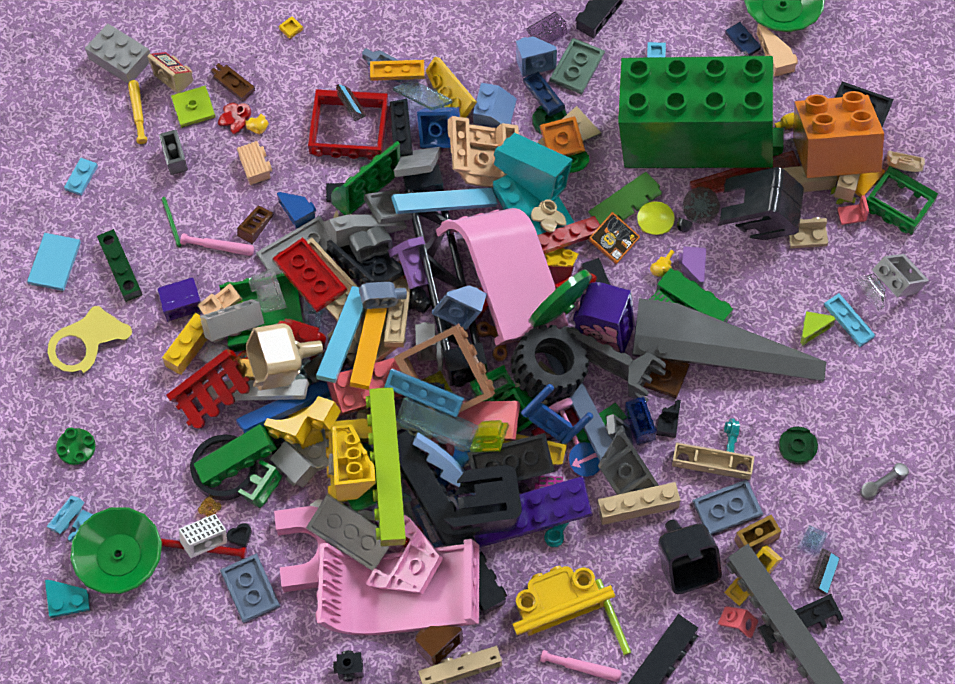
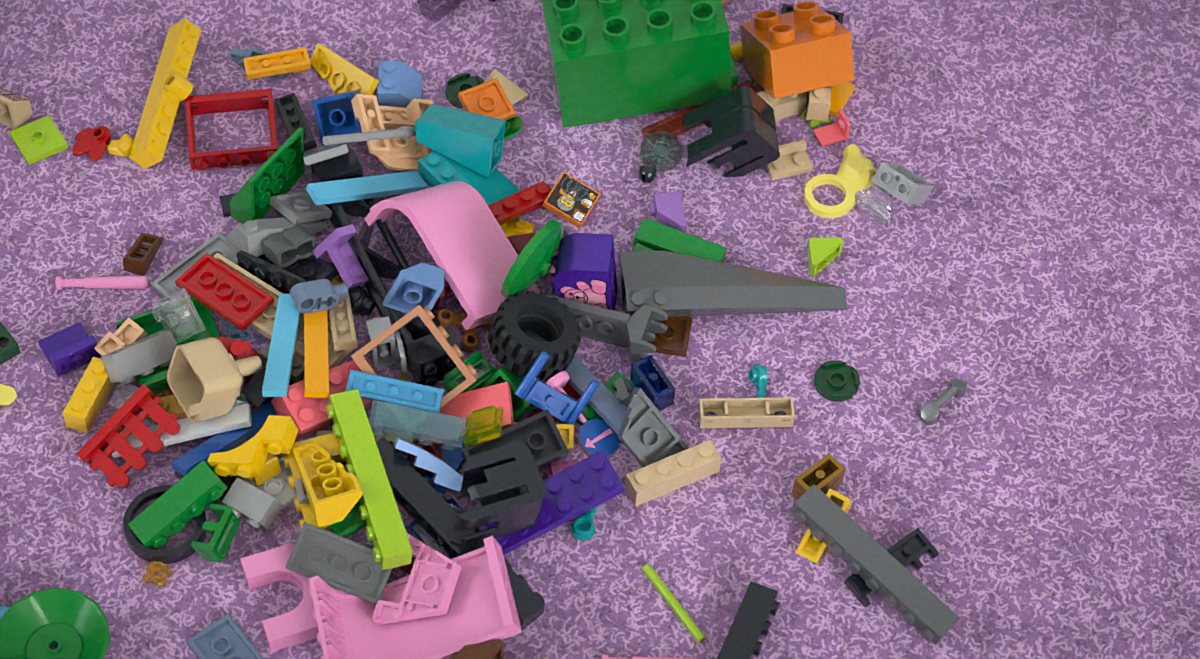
camera: 20 degrees left, 10 degrees down
(171, 221) = (37, 265): green axle -> none
(173, 152) = (26, 189): dark grey brick -> none
(202, 535) = (157, 603): white brick -> none
(218, 550) = (162, 619): red bar -> none
(233, 81) = (81, 106): reddish brown hinge -> none
(240, 535) = (201, 598): black tile -> none
(254, 163) = (126, 187): light nougat brick -> none
(291, 27) = (138, 40): yellow tile -> none
(297, 208) = (190, 227): blue slope -> none
(302, 81) = (165, 94): none -> yellow hinge
(350, 102) = (229, 103): clear smoke slope -> none
(422, 95) = (313, 84): clear light blue piece -> none
(485, 154) = (402, 132): none -> light grey bar
(535, 55) = (434, 25): medium blue slope -> none
(543, 93) = (452, 64): dark blue tile -> none
(548, 215) = (491, 185): tan plate -> none
(558, 598) = (607, 592): yellow brick -> none
(577, 66) = (483, 32): sand green tile -> none
(629, 196) = (576, 157): bright green windscreen -> none
(655, 218) = (613, 173): neon yellow dish -> none
(662, 265) = (633, 219): yellow piece -> none
(669, 420) = (684, 380): black slope -> none
(689, 557) = (749, 516): black piece -> none
(728, 507) = (775, 461): sand blue tile -> none
(737, 618) = (819, 575): coral bracket -> none
(814, 538) = (882, 475): clear light blue tile -> none
(824, 571) = (902, 508): slope -> none
(849, 320) = (858, 242): medium azure tile -> none
(860, 260) = (853, 175): none -> light yellow animal
(893, 216) = (875, 127): green window -> none
(905, 161) = (875, 71): tan tile -> none

